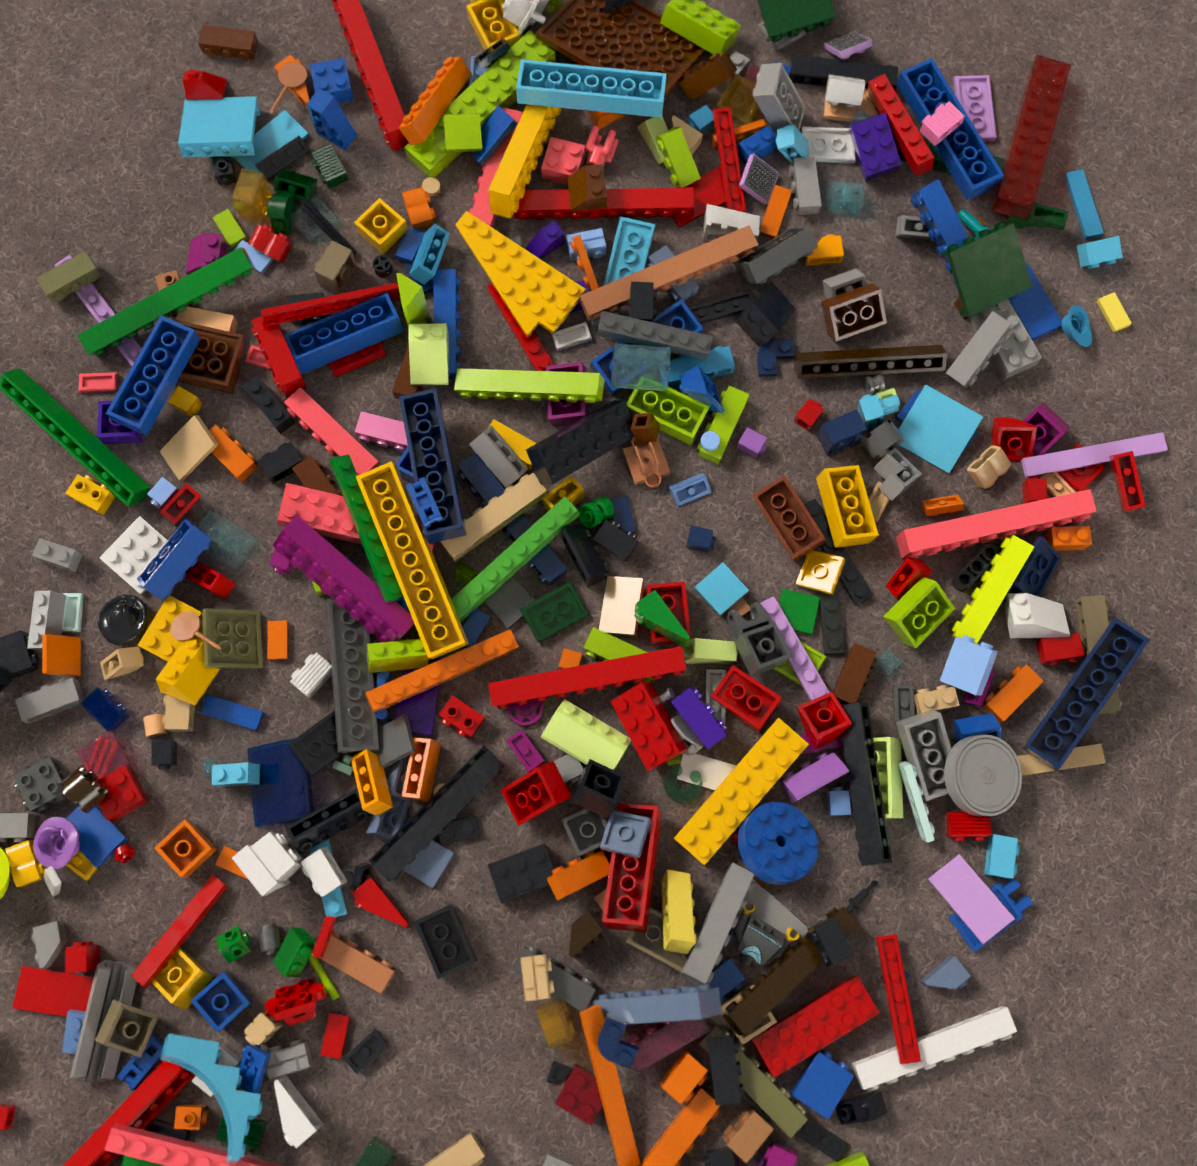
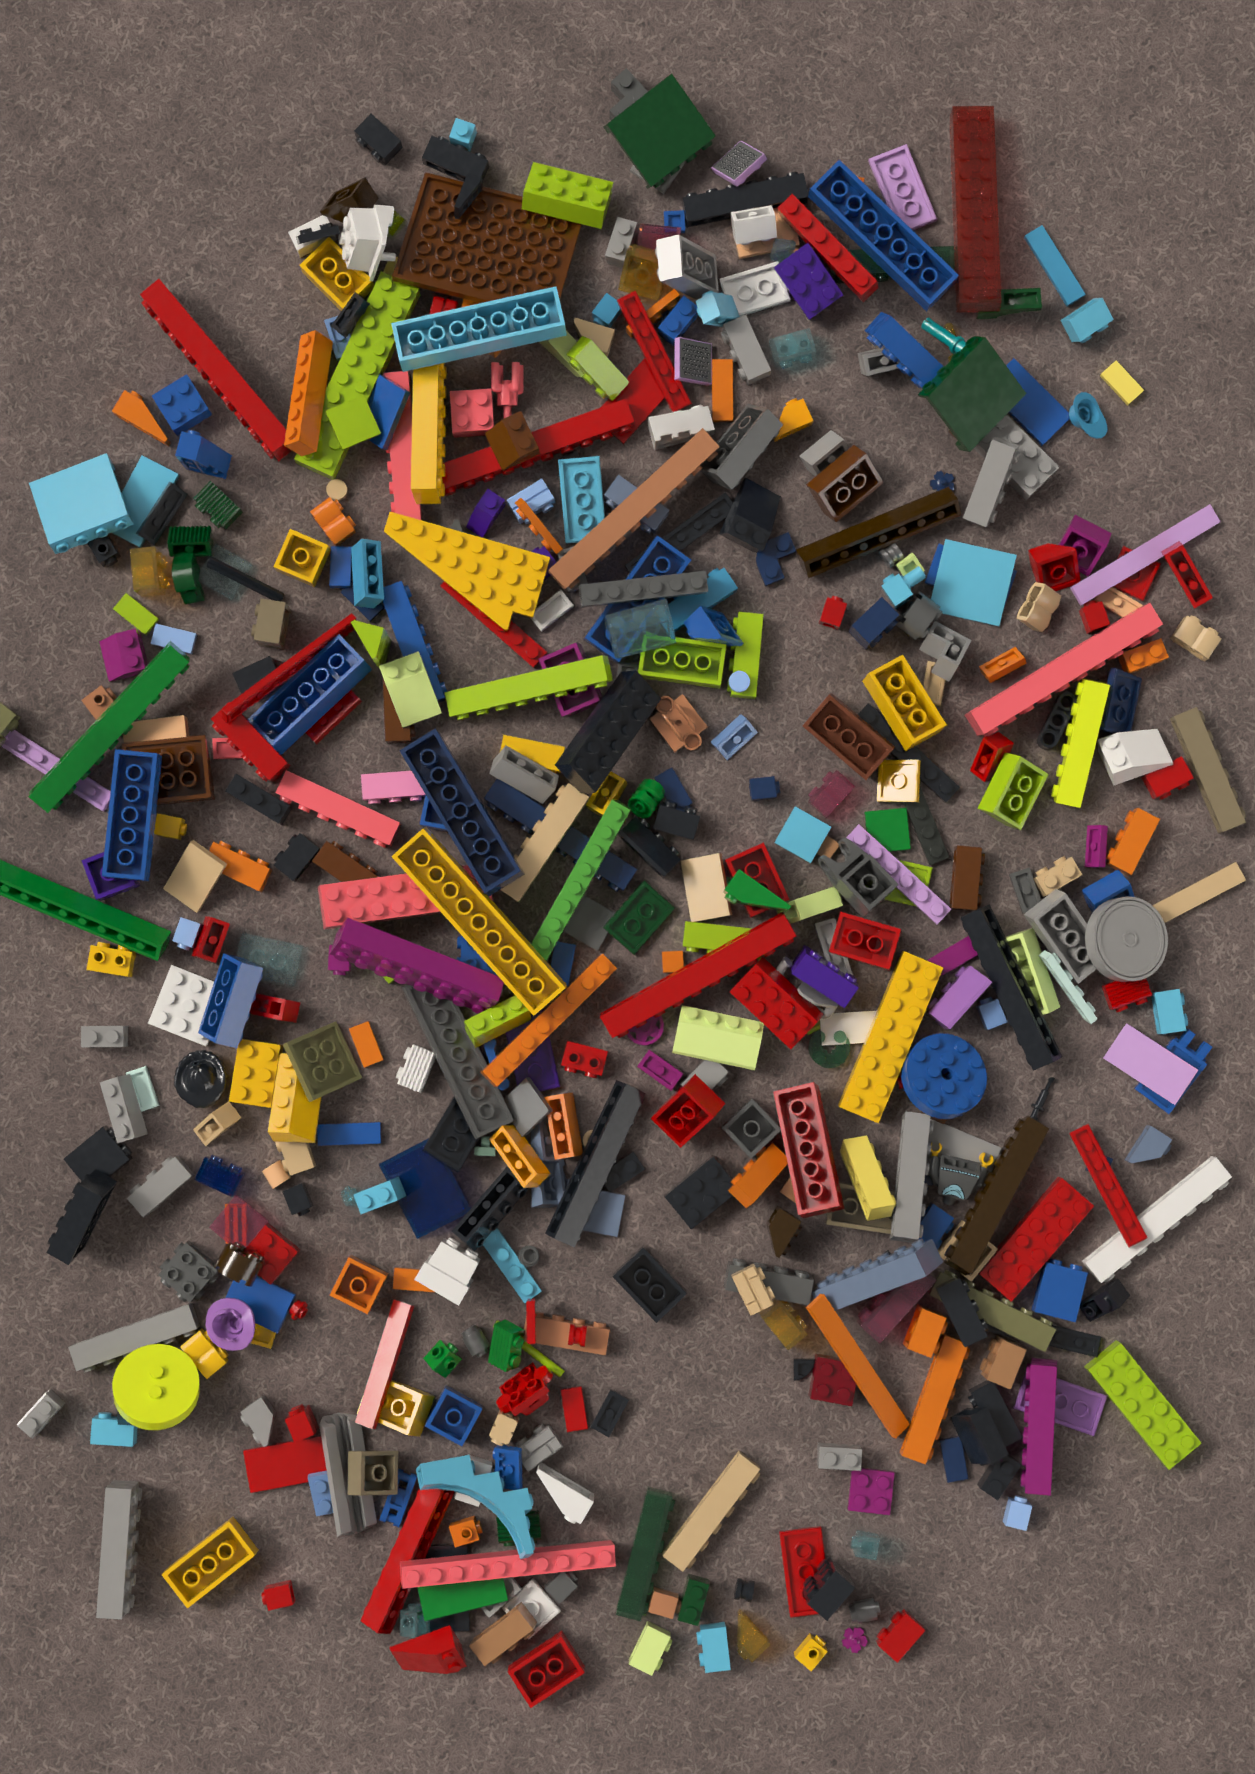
camera: 20 degrees left, 10 degrees up
(52, 881) = (240, 1361): white tile -> none
(61, 655) = (154, 1137): orange tile -> none
(98, 382) = (66, 836): coral tile -> none
(187, 626) = (273, 1066): nougat piece -> none
(203, 85) = (45, 461): red slope -> none
(228, 42) = (47, 396): reddish brown brick -> none
(270, 243) = (189, 618): red brick -> none
(291, 76) = (137, 416): nougat piece -> none
(323, 872) = (505, 1260): white brick -> none
(360, 871) = (539, 1245): black tile -> none
(361, 964) = (577, 1335): none -> red wheel
(376, 901) = (567, 1269): red slope -> none
(378, 559) = (418, 902): green plate -> none
(382, 262) = (316, 598): black wheel -> none
(424, 502) = (472, 858): blue plate -> none
(465, 573) = (534, 909): clear neon green slope -> none
(598, 788) = (749, 1085): black brick -> none
(612, 1046) = (847, 1327): dark blue plate -> none
(625, 834) = (791, 1121): sand blue tile -> none
(641, 301) = (618, 557): black brick -> none
(645, 427) = (667, 691): reddish brown brick -> none
(707, 75) = (598, 260): reddish brown brick -> none
(752, 443) = (783, 665): medium lavender brick -> none
(757, 563) = (831, 793): none -> clear pink brick
(823, 719) = (950, 936): red slope -> none
(830, 941) = (1025, 1156): black brick -> none
(888, 662) = (996, 851): clear light blue tile -> none
(935, 340) = (942, 481): none -> dark blue plant
(941, 123) = (873, 239): bright pink brick -> none
(969, 665) = (1079, 830): light blue brick -> none
(1085, 694) = (1205, 820): dark blue brick -> none
(1119, 538) = (1196, 638): none -> tan brick

